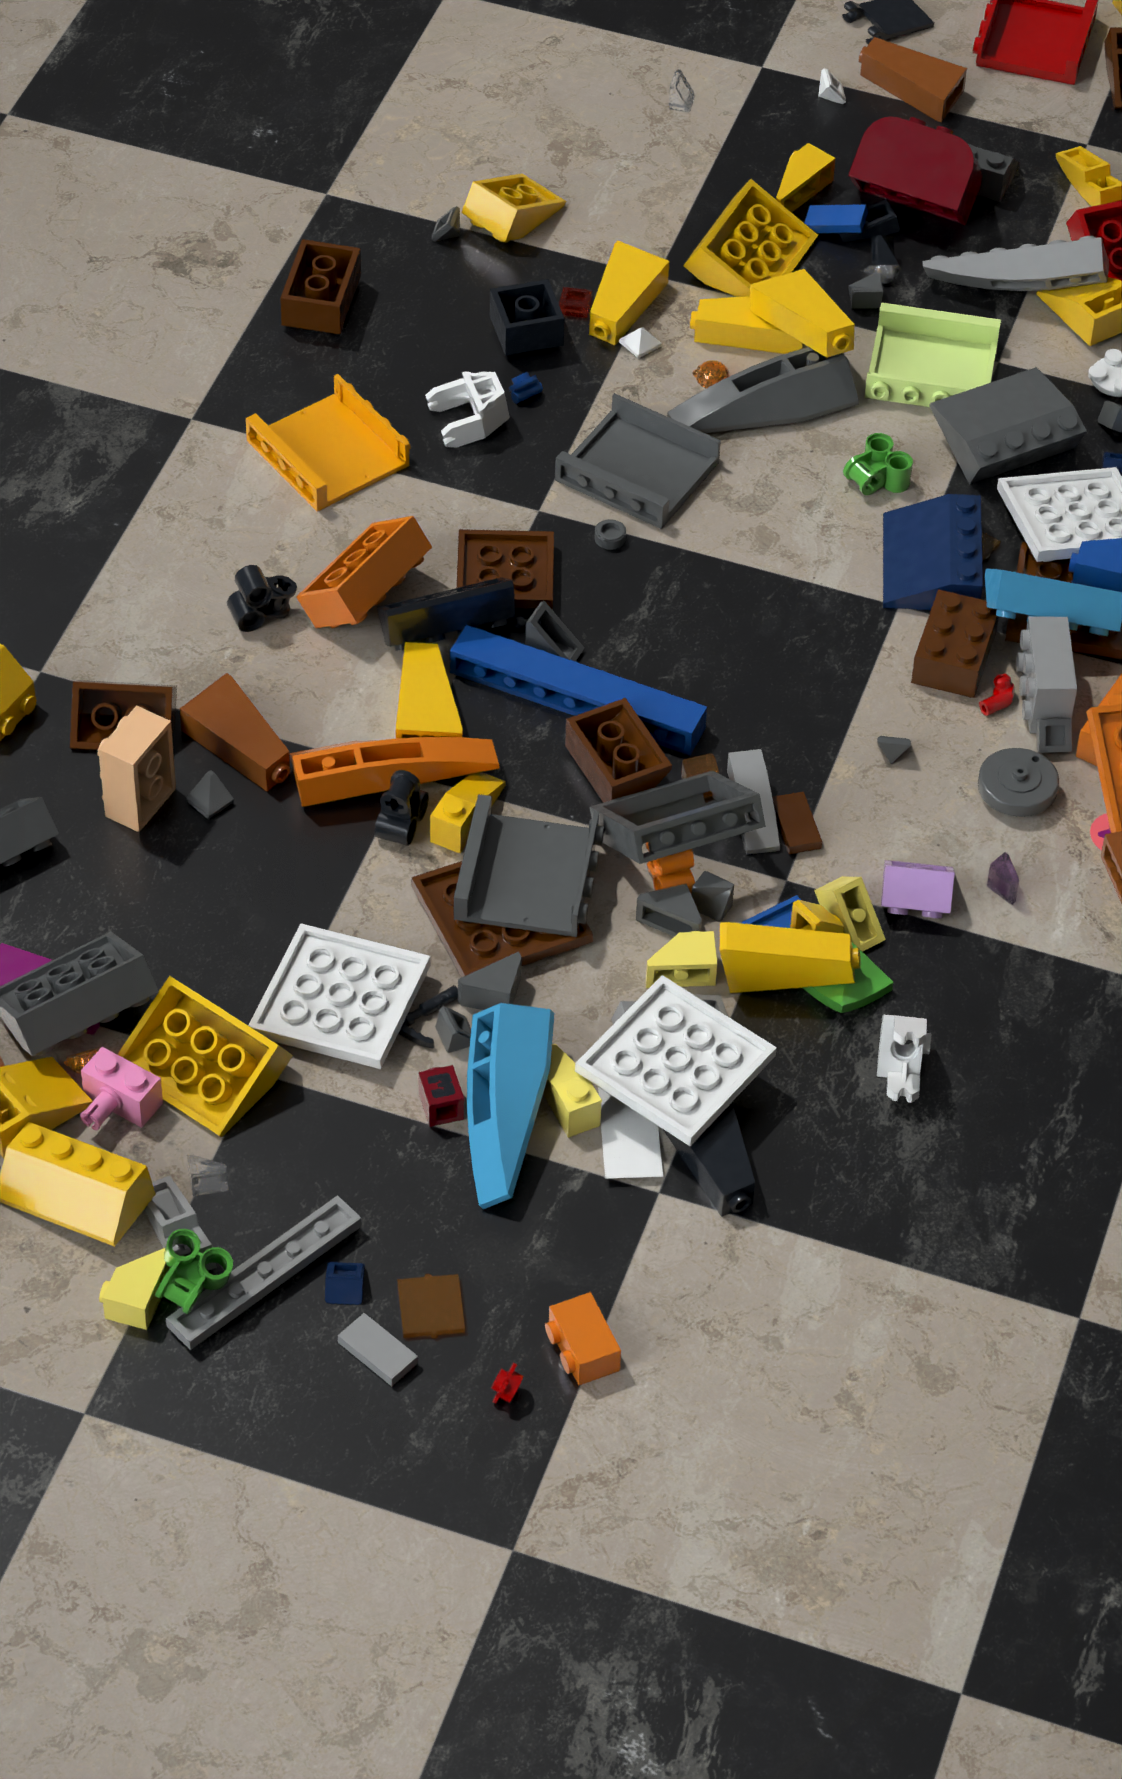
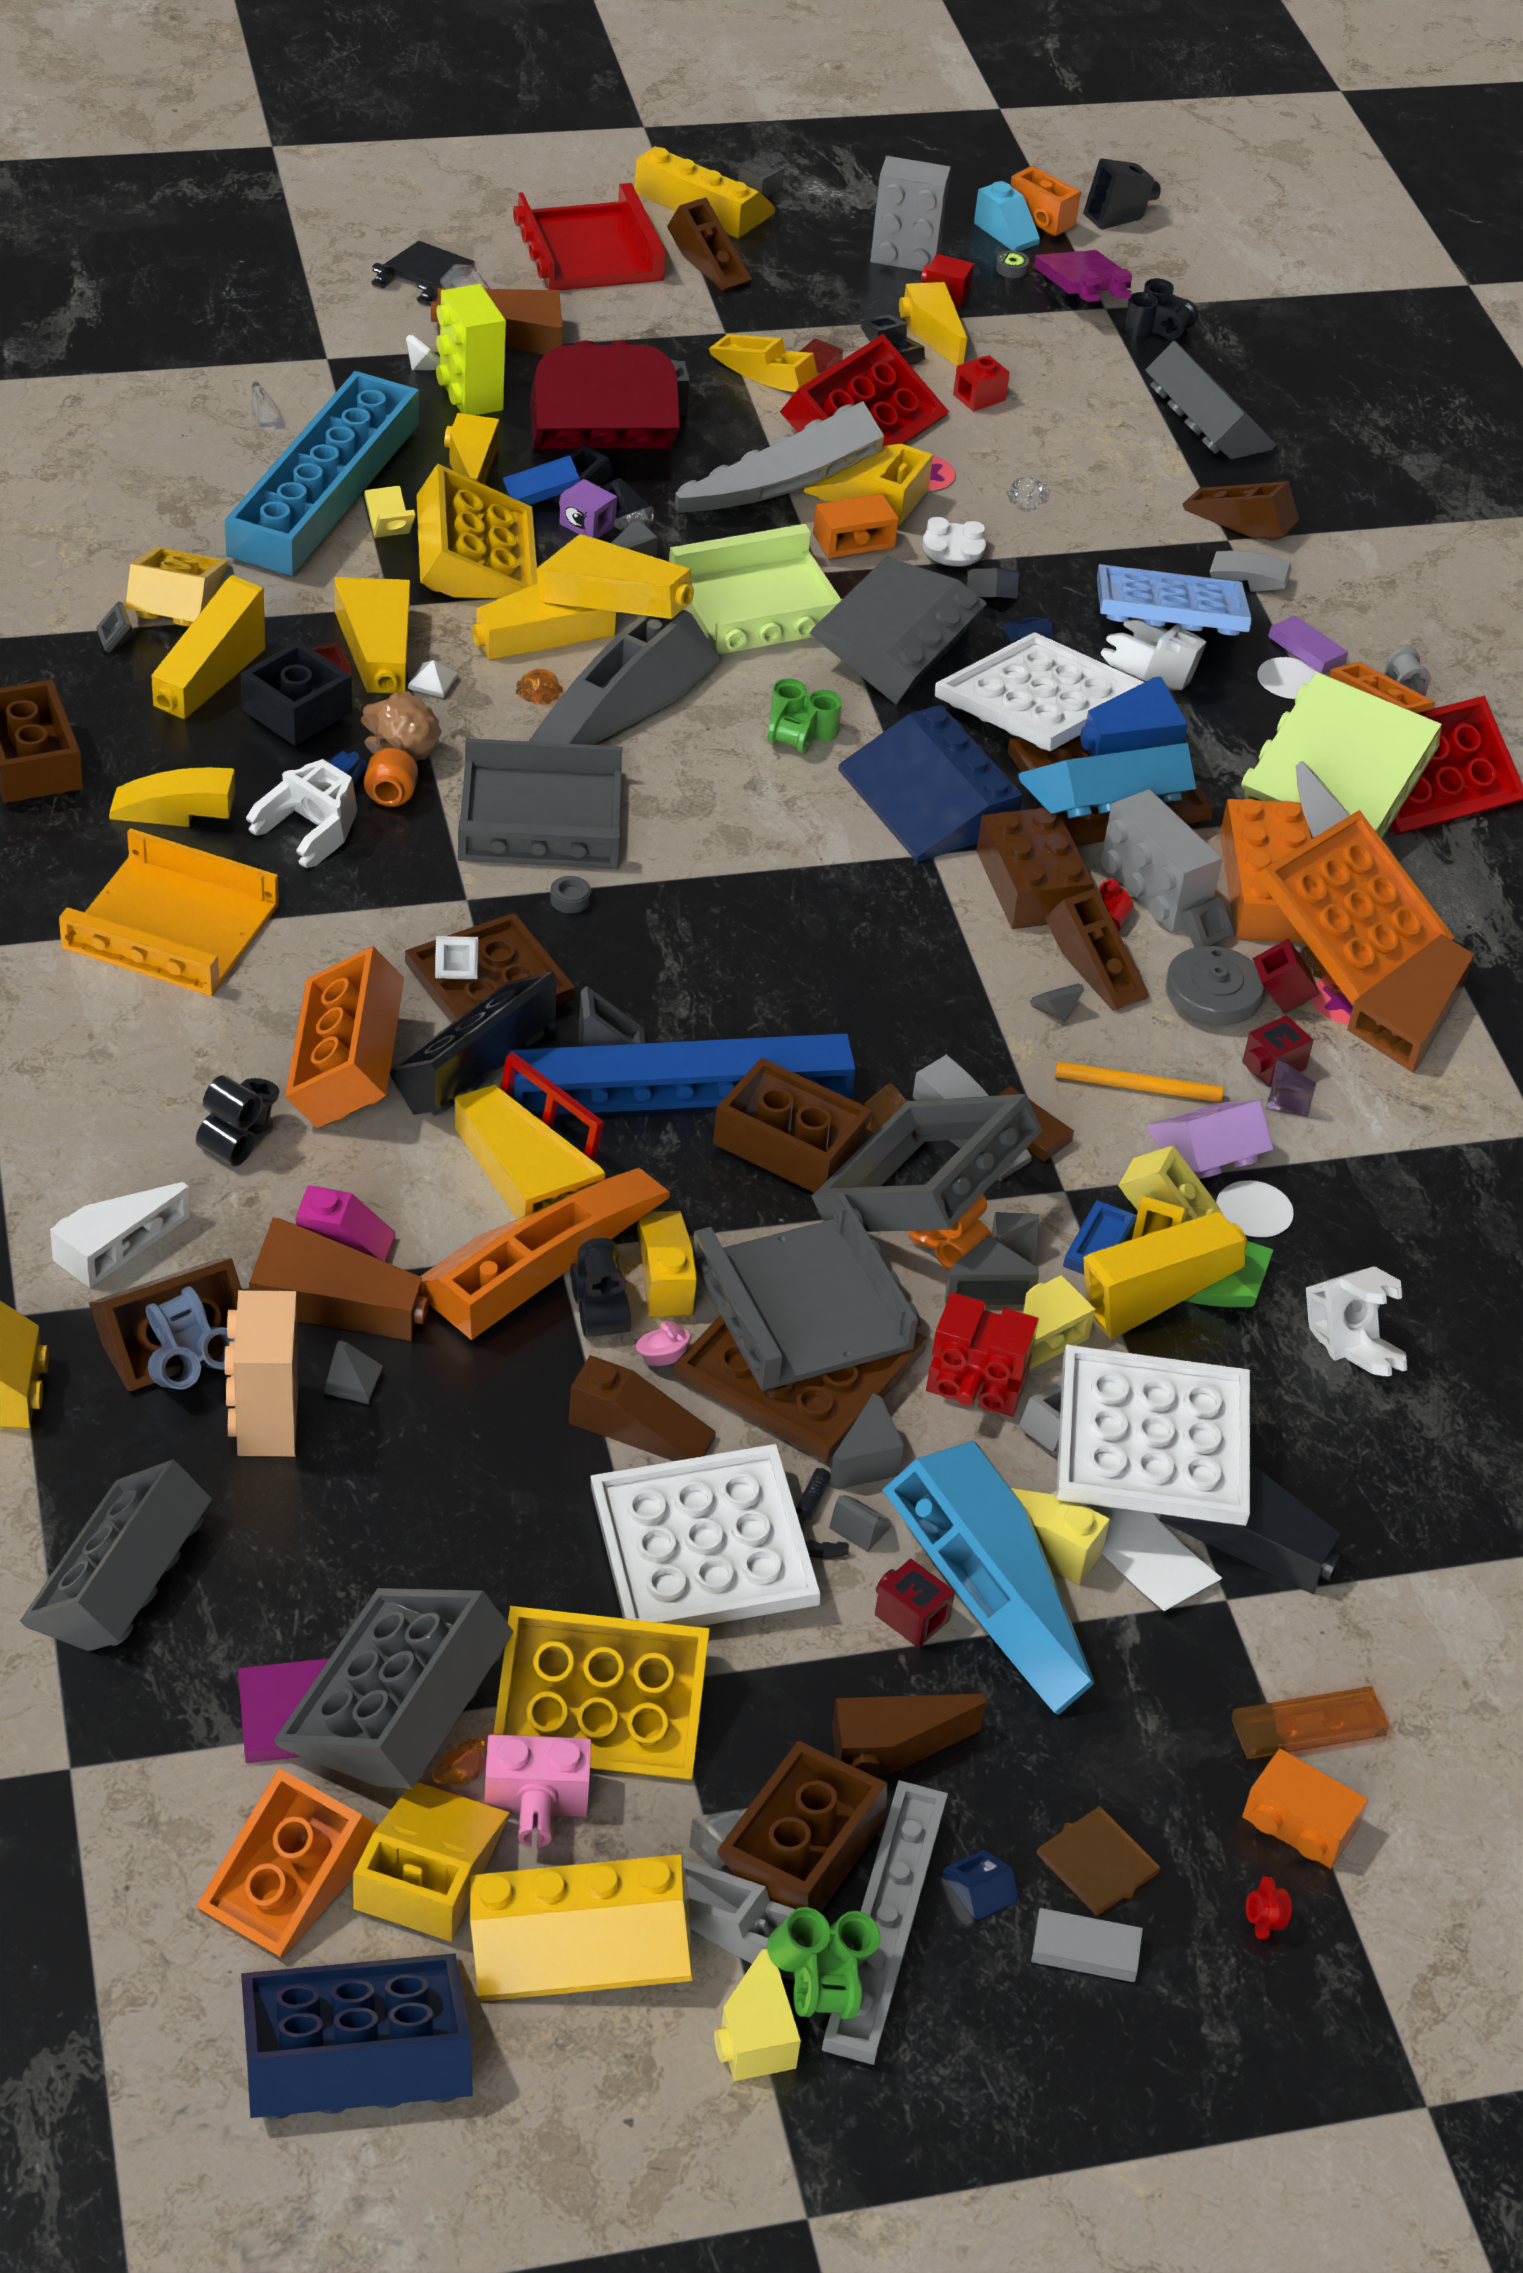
camera: 35 degrees left, 5 degrees down
(106, 719) = (183, 1336): none -> sand blue piece
(130, 642) = (114, 1231): none -> white slope
(250, 1195) = (806, 1828): none -> reddish brown slope
(273, 698) = (345, 1220): none -> dark pink slope
(362, 1167) = (897, 1731): none -> reddish brown slope
(363, 897) = (635, 1412): none -> reddish brown slope
(393, 363) = (176, 796): none -> yellow slope
(417, 862) = (664, 1344): none -> bright pink hat
(461, 673) = (554, 1096): none -> red window
(481, 547) = (456, 957): none -> white slope
(500, 260) = (212, 649): none -> yellow slope
(546, 403) = (391, 777): none -> orange head
(579, 369) = (401, 724): none -> medium nougat animal
(611, 958) = (981, 1355): none -> red brick
(642, 1291) = (1310, 1722): none -> clear orange tile
(676, 156) = (321, 473): none -> dark azure brick
(703, 202) = (388, 512): none -> light yellow bracket
(848, 96) = (471, 350): none -> neon yellow brick
(852, 251) = (588, 509): none -> medium lavender brick
(904, 828) = (1139, 1082): none -> light orange bar
(910, 36) = (462, 276): none -> clear slope
(913, 950) = (1256, 1208): none -> white sticker
(950, 722) = (1096, 948): none -> reddish brown slope
(1023, 844) = (1277, 1041): none -> dark red brick
(1044, 334) = (855, 526): none -> orange brick
(1072, 796) = (1286, 976): none -> dark red brick

